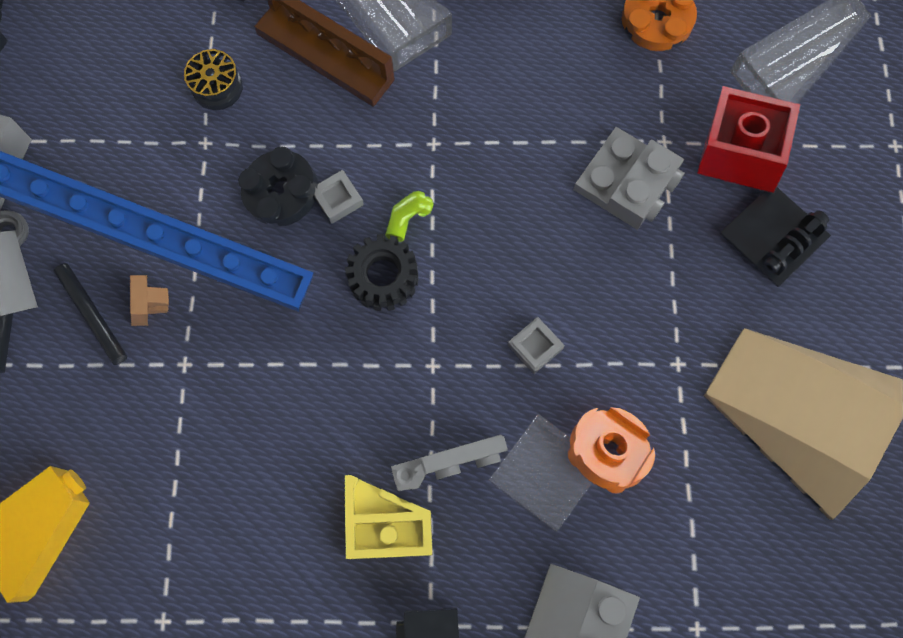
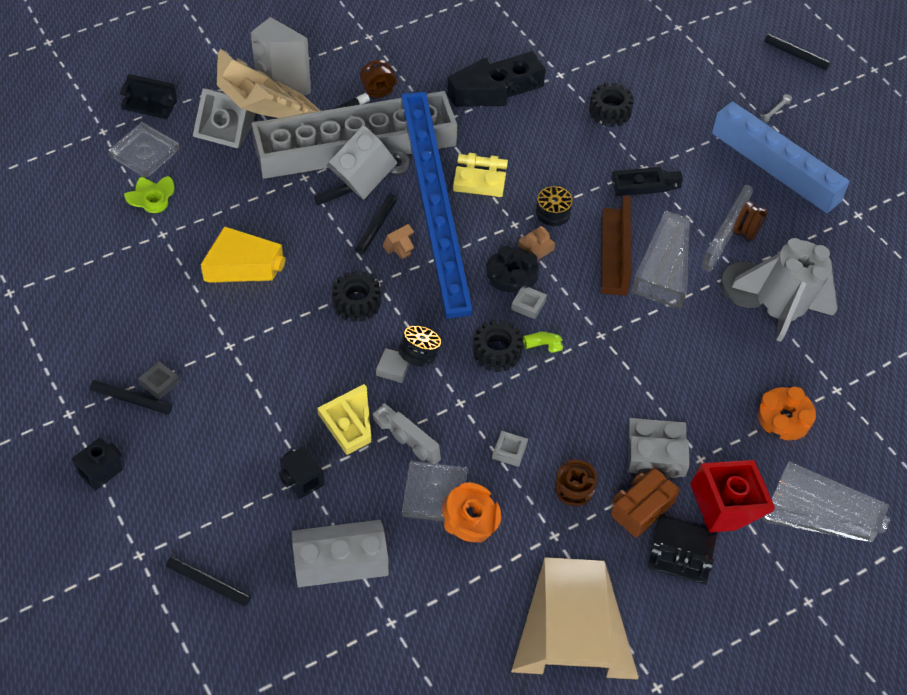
camera: 55 degrees right, 20 degrees down
(108, 145) = (480, 181): none -> light yellow plate
(170, 406) = (356, 308): none -> black tyre
(255, 134) = (537, 242): none -> medium nougat tile
(331, 373) = (419, 348): none -> black wheel
(331, 418) = (392, 366): none -> light grey tile
(630, 297) = (576, 481): none -> reddish brown wheel
(699, 237) = (644, 501): none -> dark orange brick

